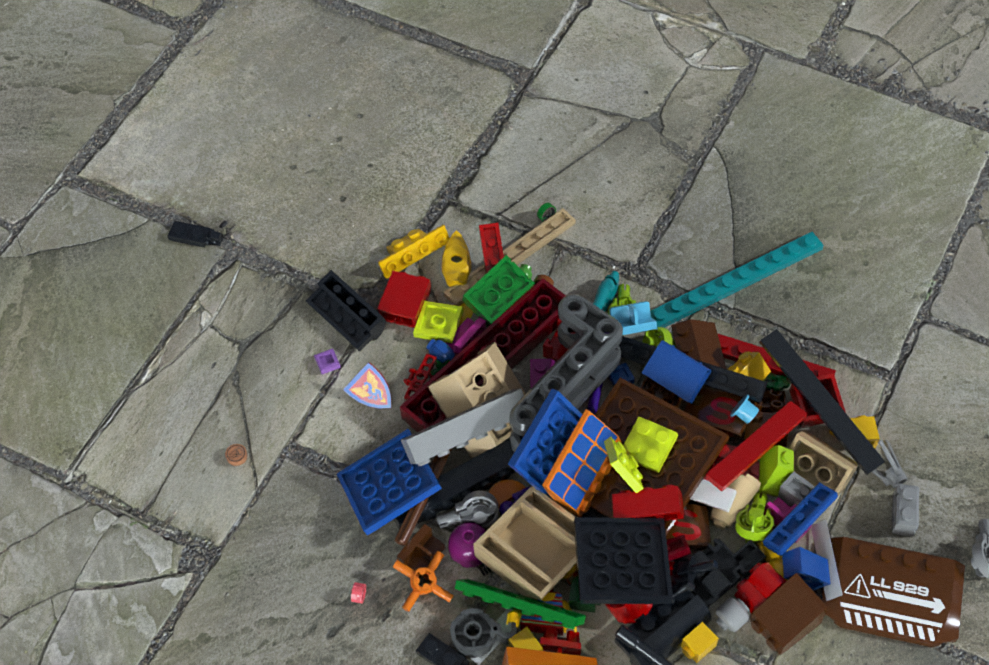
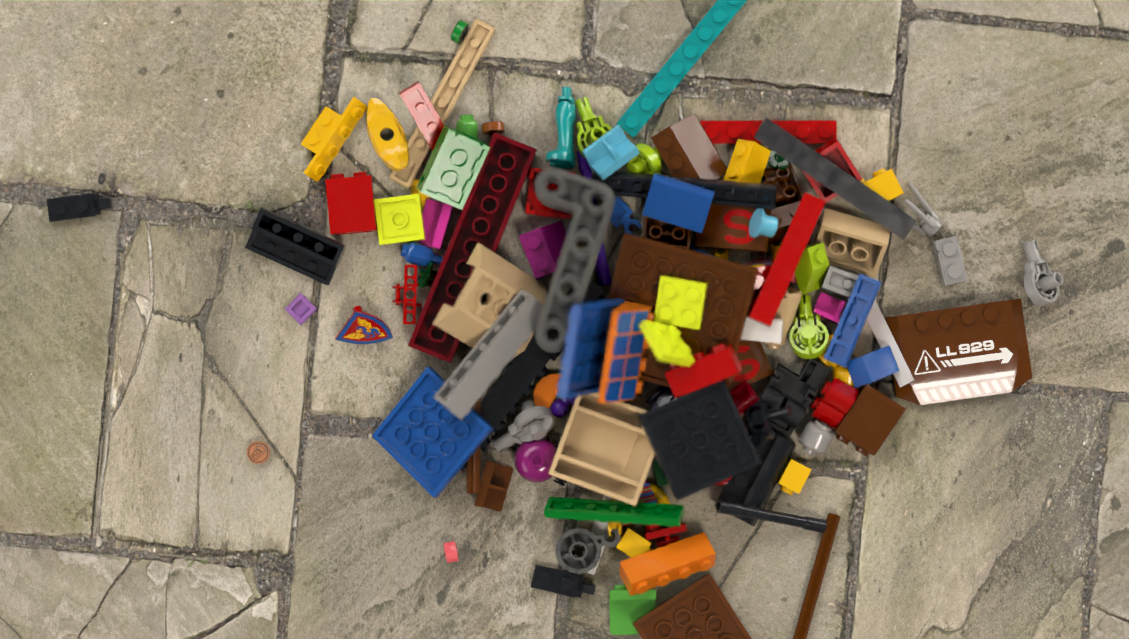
camera: 30 degrees left, 30 degrees up
(427, 573) = (505, 511): orange bar -> none

